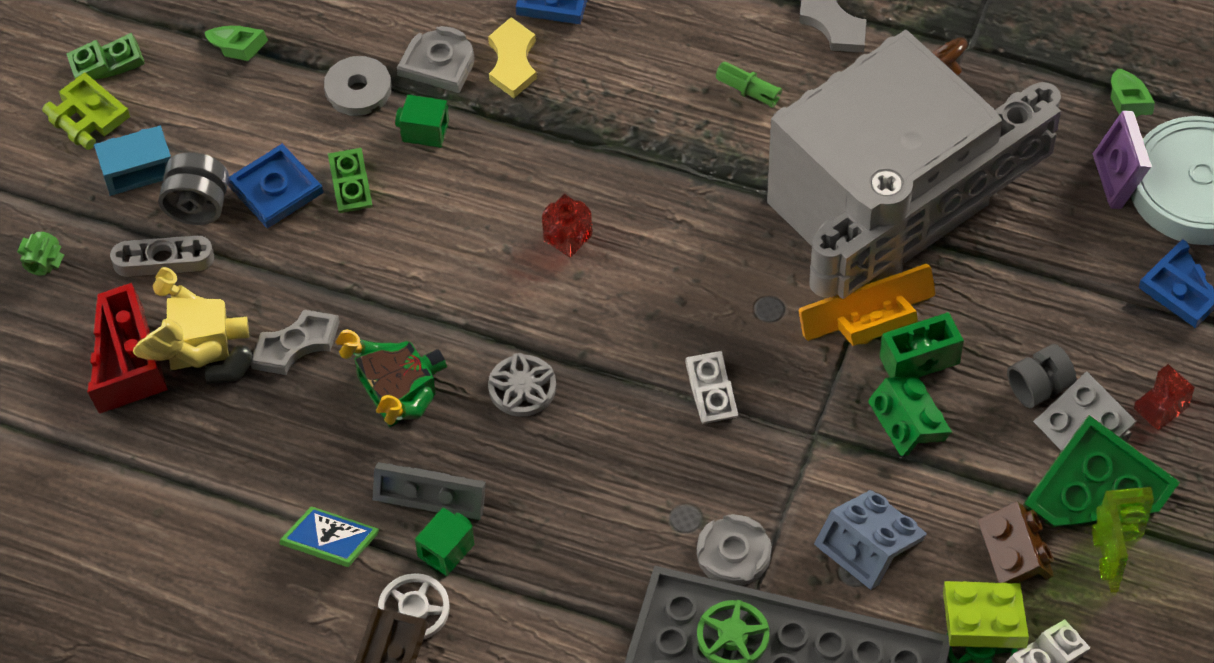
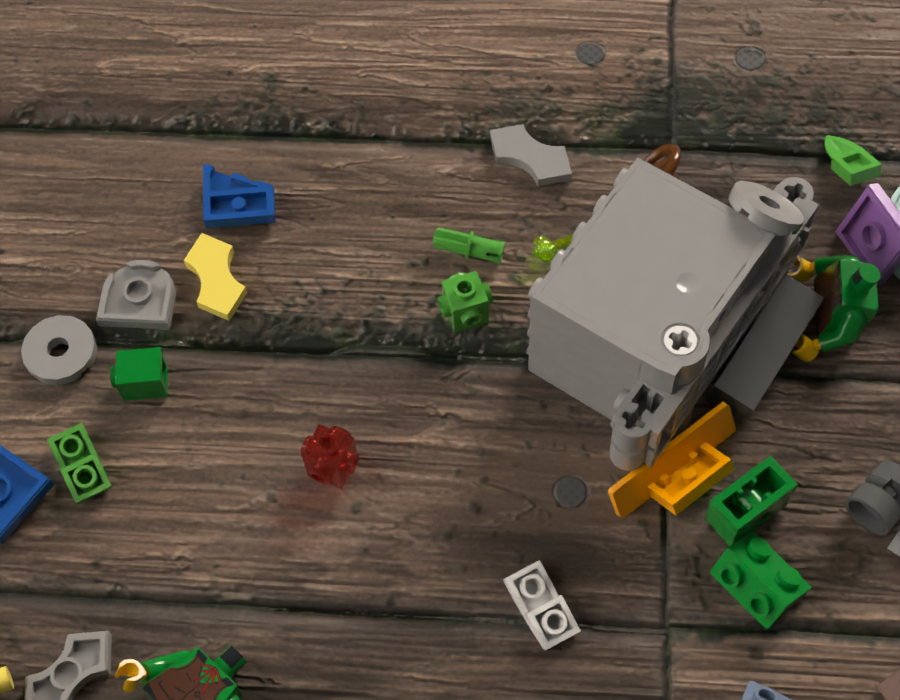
camera: 15 degrees left, 5 degrees up
(522, 385) = (335, 659): light grey wheel -> none
(728, 129) = (465, 301): none -> bright green brick
(984, 228) = (765, 347): none -> dark grey brick
(1005, 98) = (766, 208): none -> light grey tile
(1068, 211) = (847, 304): none -> green torso

